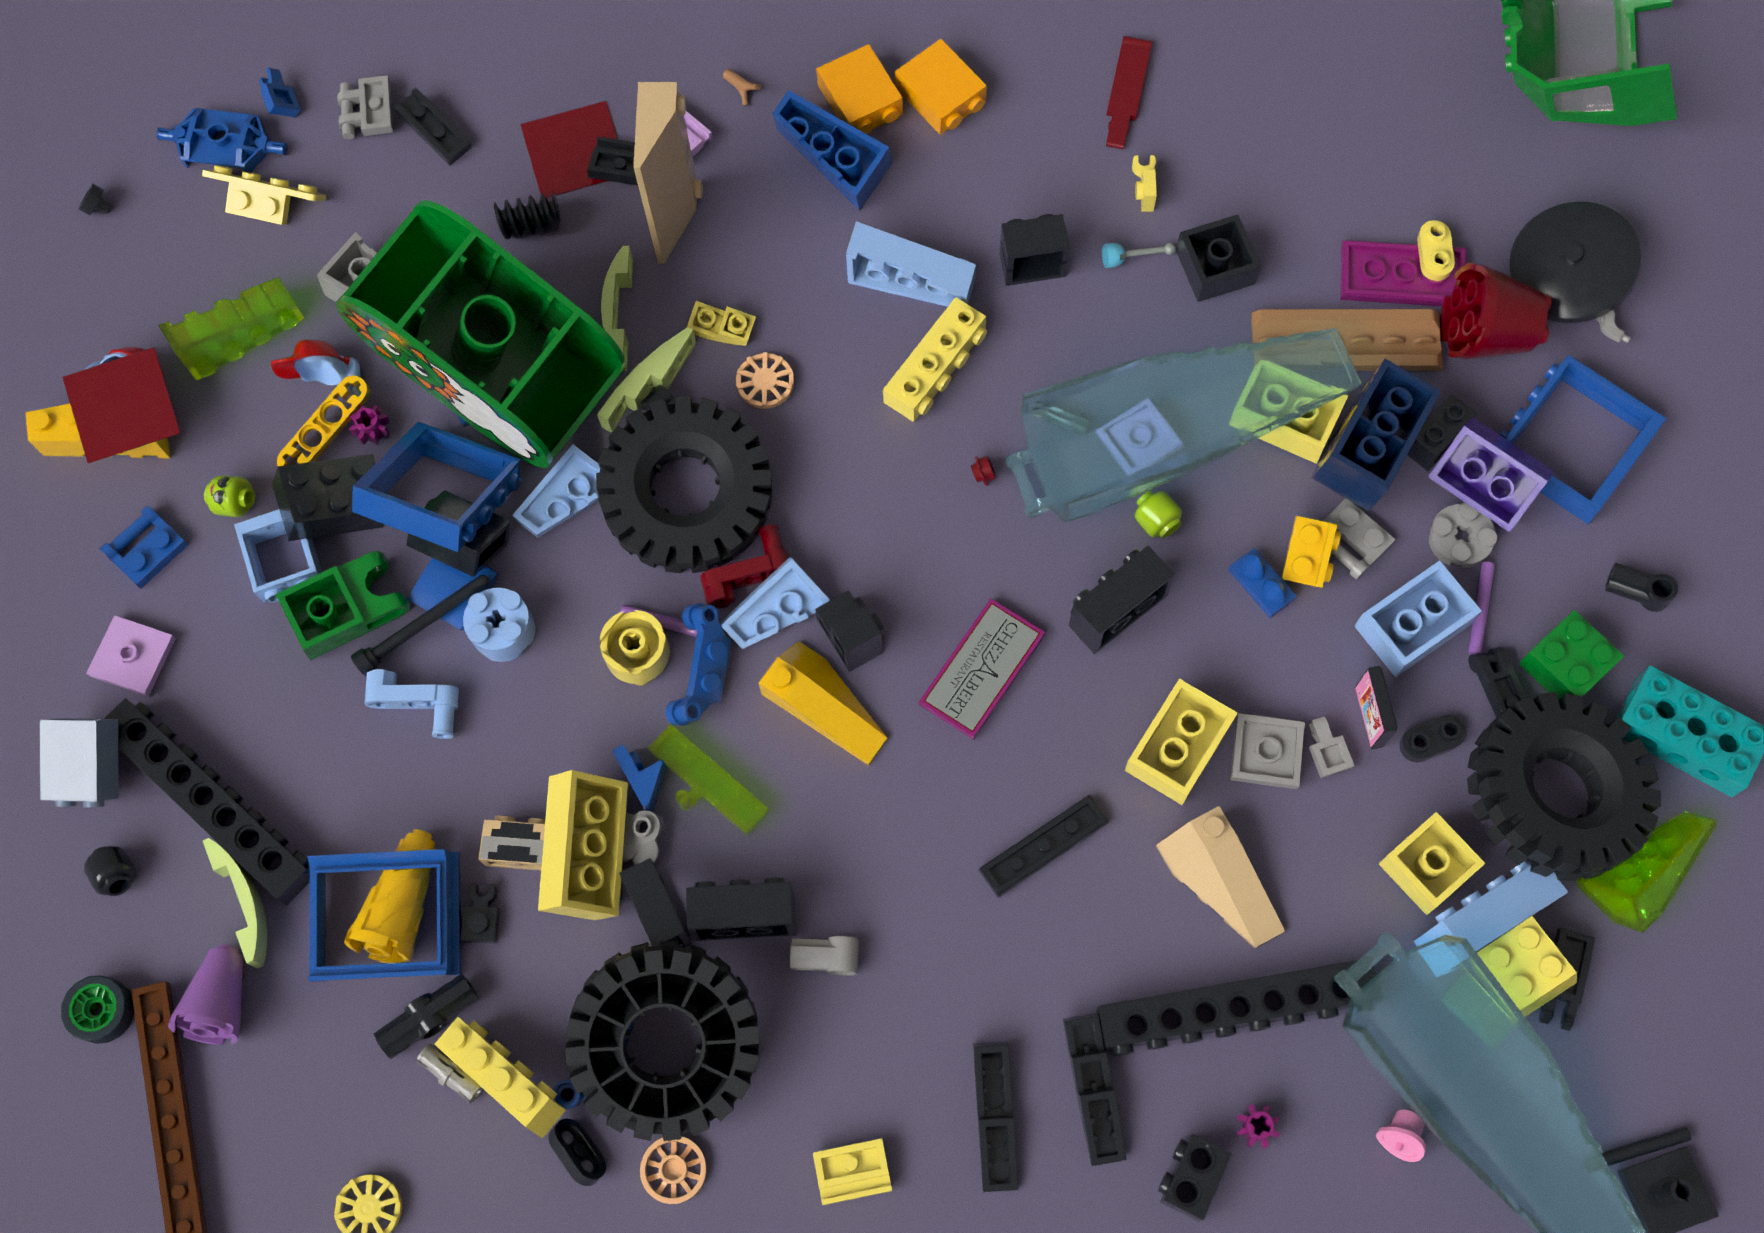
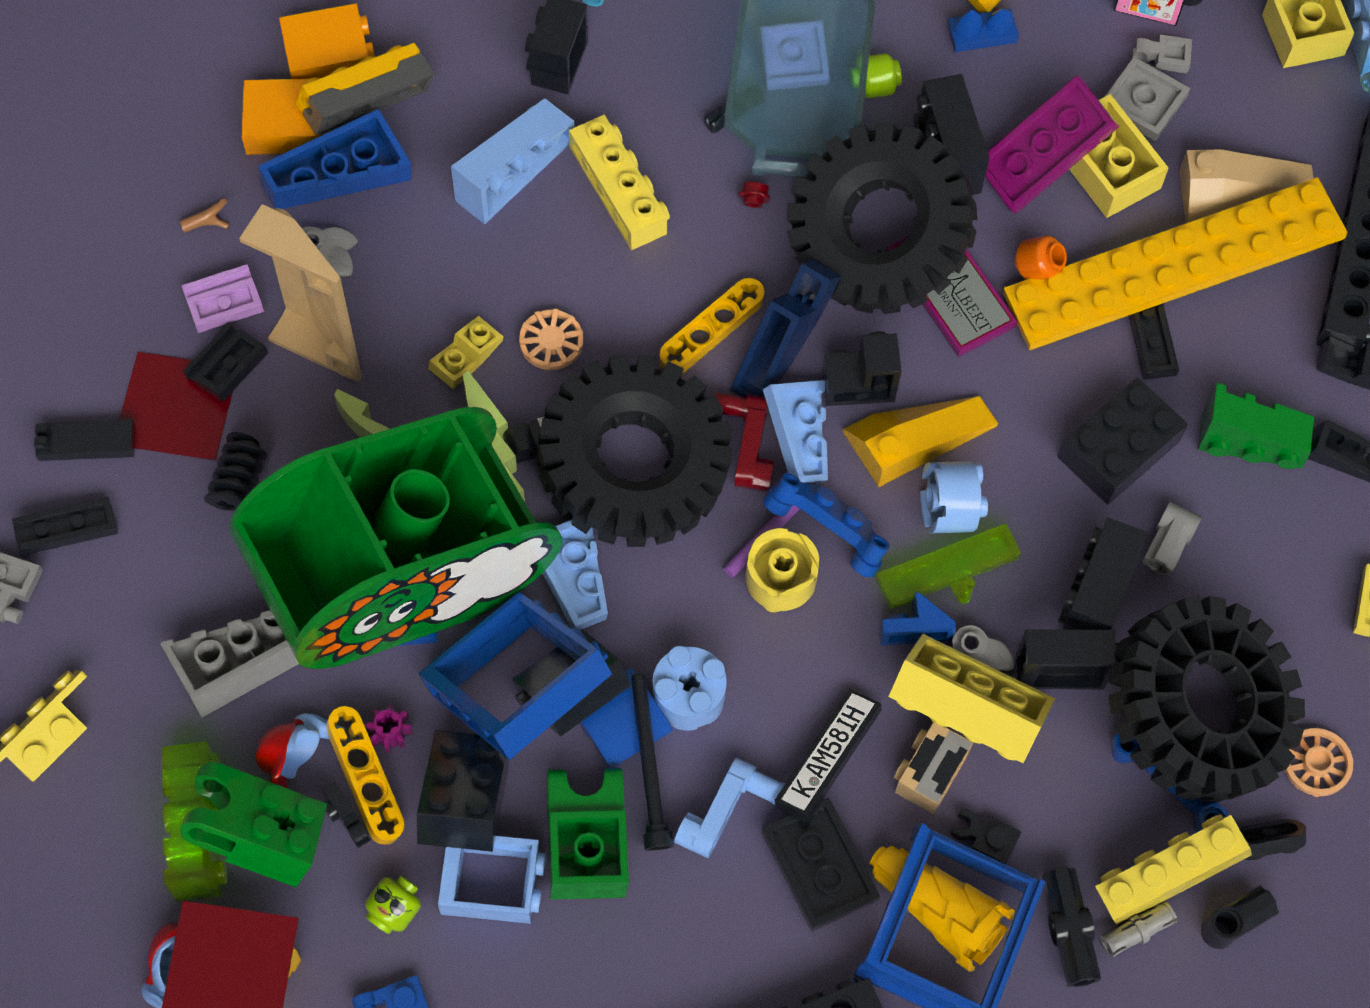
camera: 70 degrees left, 5 degrees down
(235, 357) = (255, 823): none -> green brick
(287, 425) = (340, 808): none -> black plate
(397, 793) = (820, 865): none -> black plate
(490, 756) = (828, 755): none -> tile
(496, 1156) = (1240, 917): none -> black piece
(511, 103) = (84, 440): none -> black hinge
(755, 184) = (333, 245): none -> light grey plate
(765, 751) = (952, 497): none -> light blue brick
(843, 490) = (707, 322): none -> yellow beam
(857, 549) = (785, 329): none -> dark blue slope
(897, 873) = (1122, 440): none -> black brick
(908, 130) = (364, 88): none -> dark grey piece
(964, 985) = (1255, 431): none -> green wedge
(965, 540) = (874, 162): none -> black tyre
(1042, 727) = (1040, 258): none -> orange head
(1104, 849) = (1175, 263): none -> yellow plate
(1155, 681) = (1048, 143): none -> magenta tile

